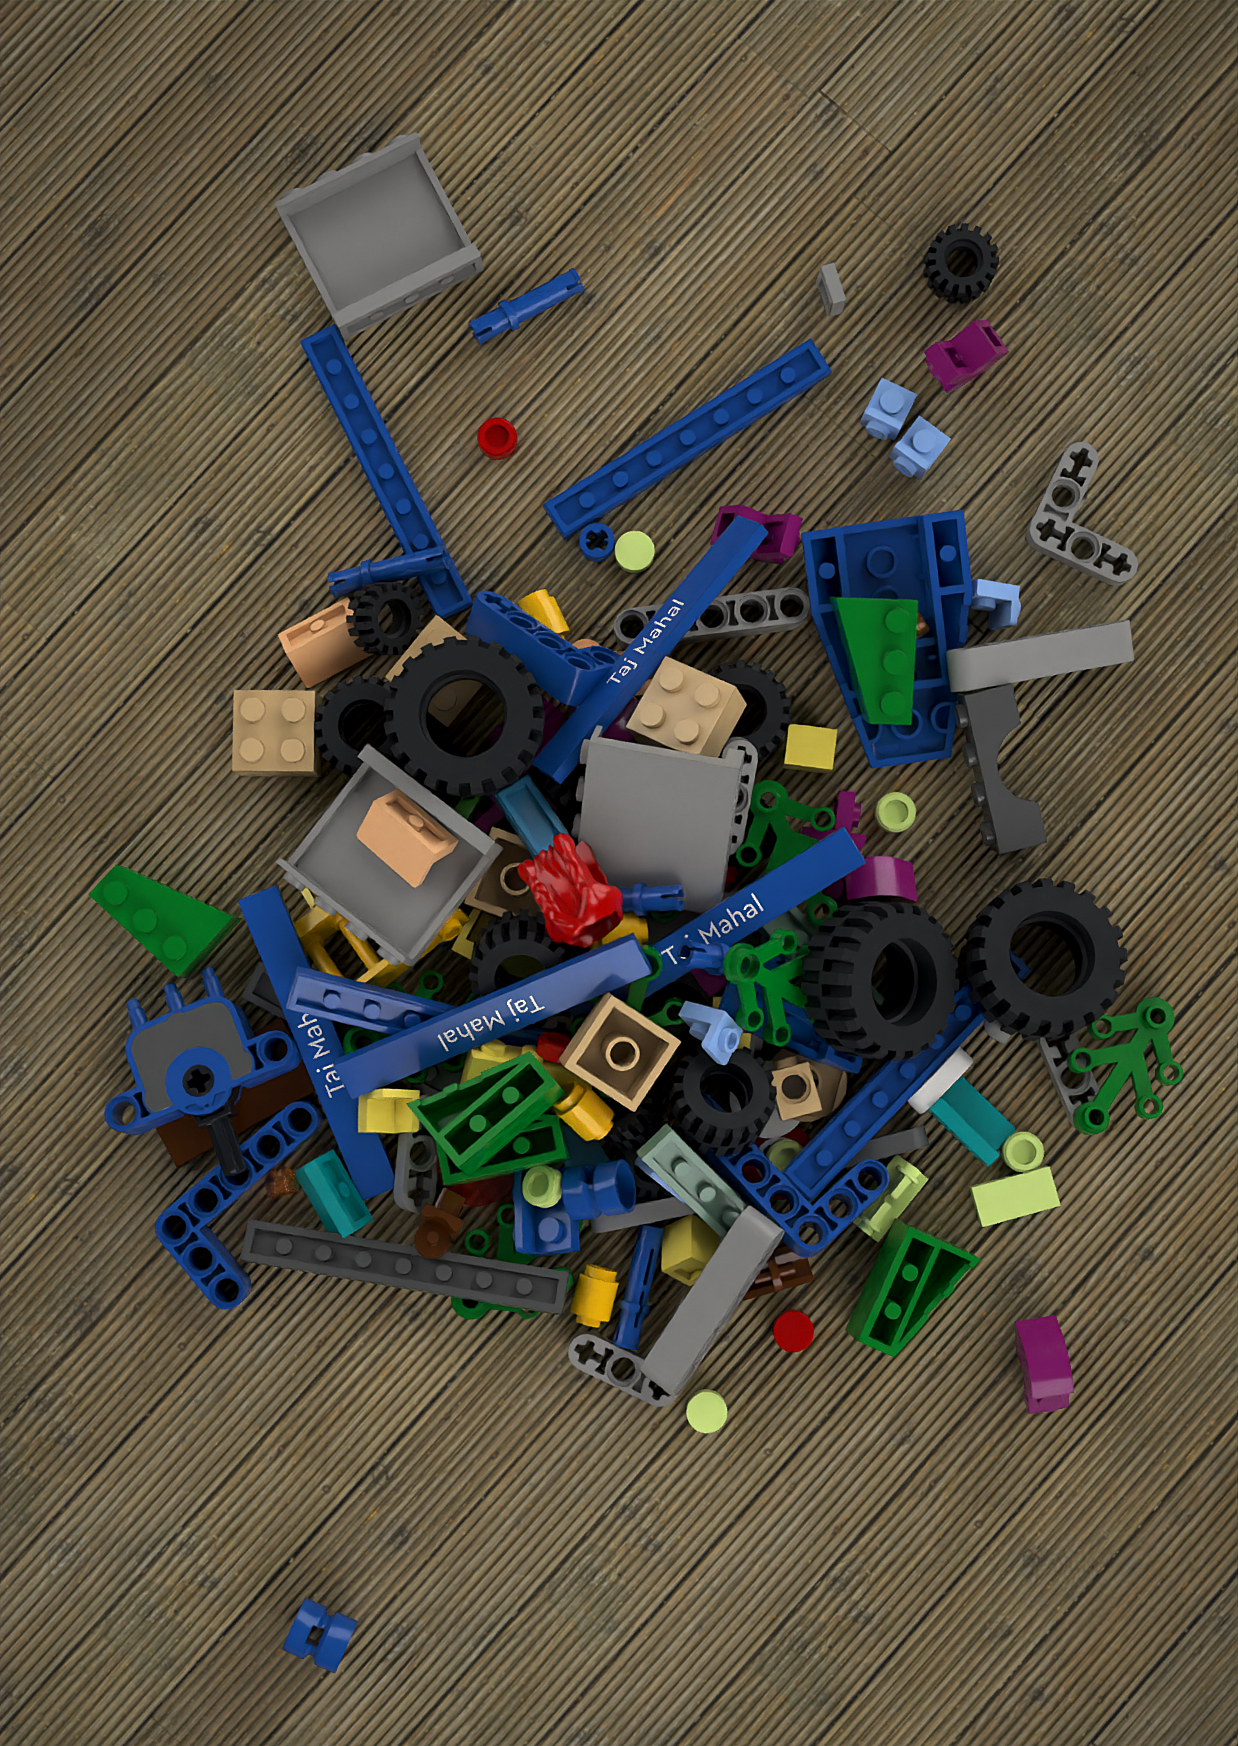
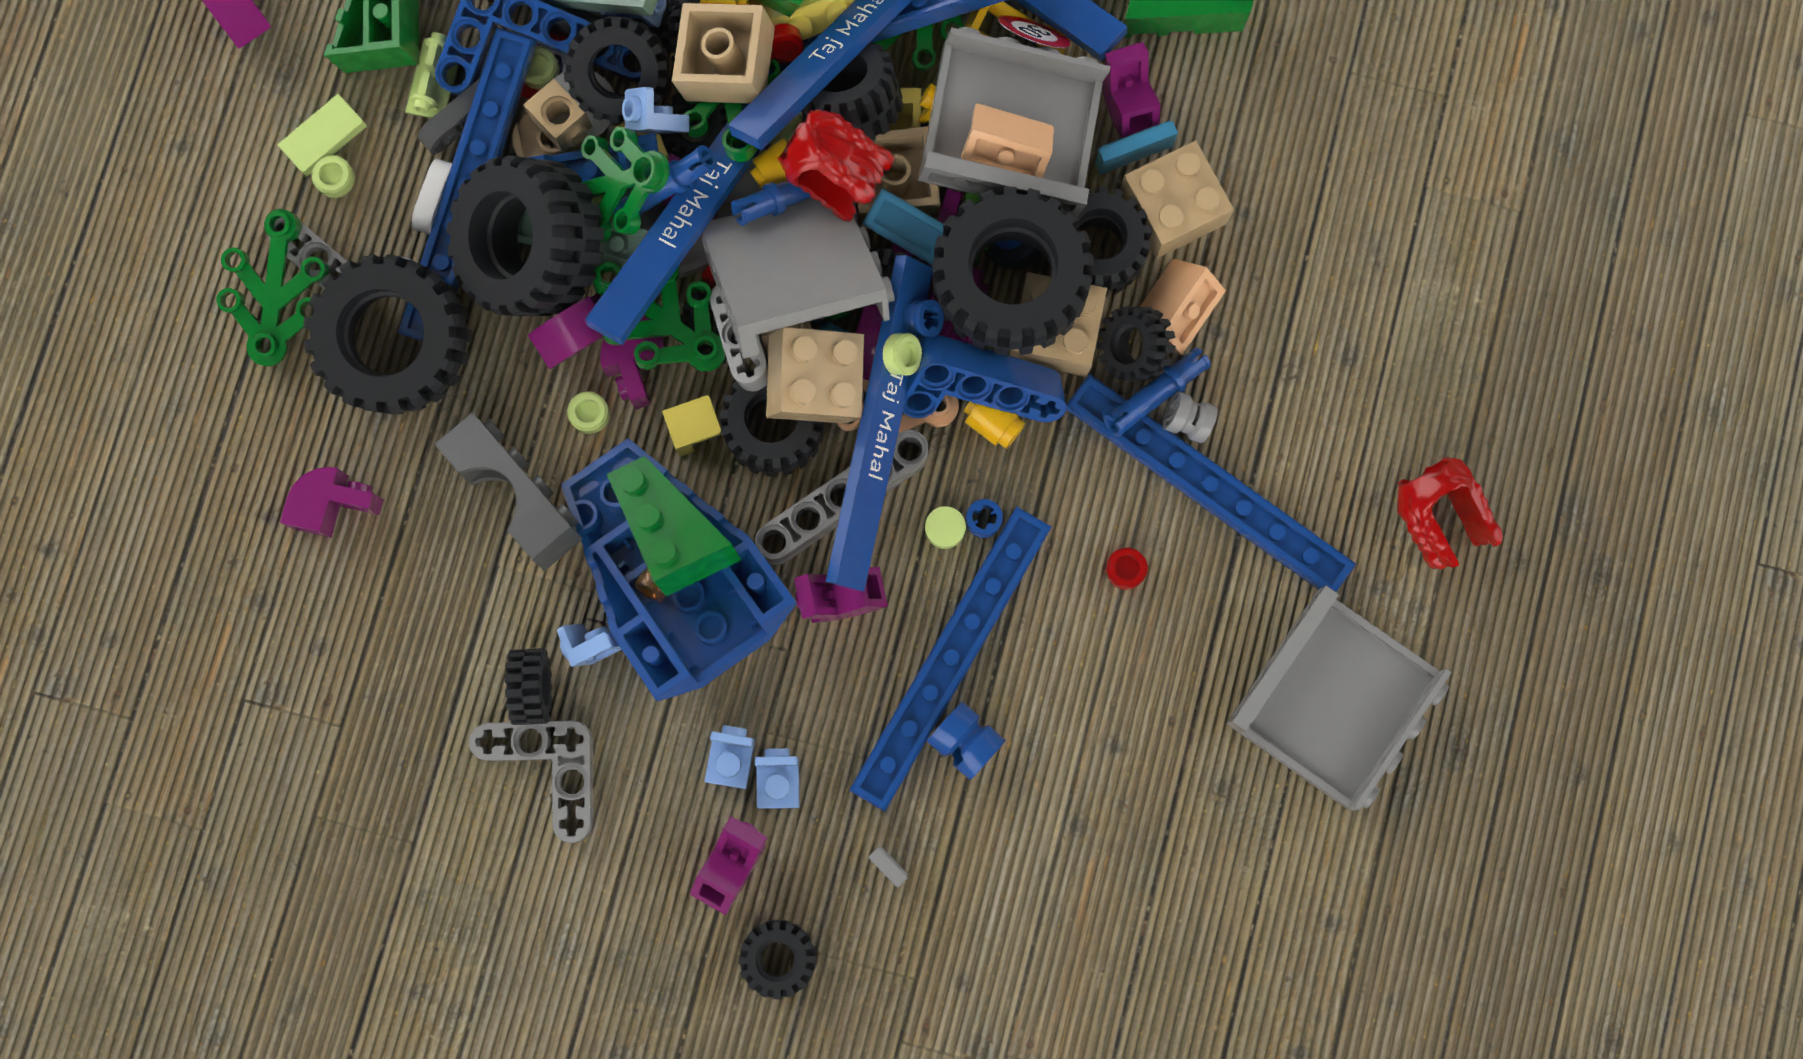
camera: 150 degrees right, 5 degrees down
(217, 353) = (1419, 496): none -> red piece
(265, 840) = (1128, 91): none -> magenta brick
(285, 801) = (1136, 147): none -> dark azure tile
(324, 937) = (1034, 31): none -> sticker
(375, 536) = (1189, 417): none -> light grey wheel
(522, 308) = (1167, 702): blue pin -> none
(564, 718) = (932, 315): none -> blue bush
(600, 692) = (902, 354): none -> yellowish green tile
(714, 362) = (966, 740): none -> blue wheel
(972, 1120) = (387, 176): teal panel -> none
(1039, 656) = (520, 610): light grey beam -> none
(1064, 587) = (528, 686): none -> black tyre
(1171, 851) = (317, 497): none -> magenta brick

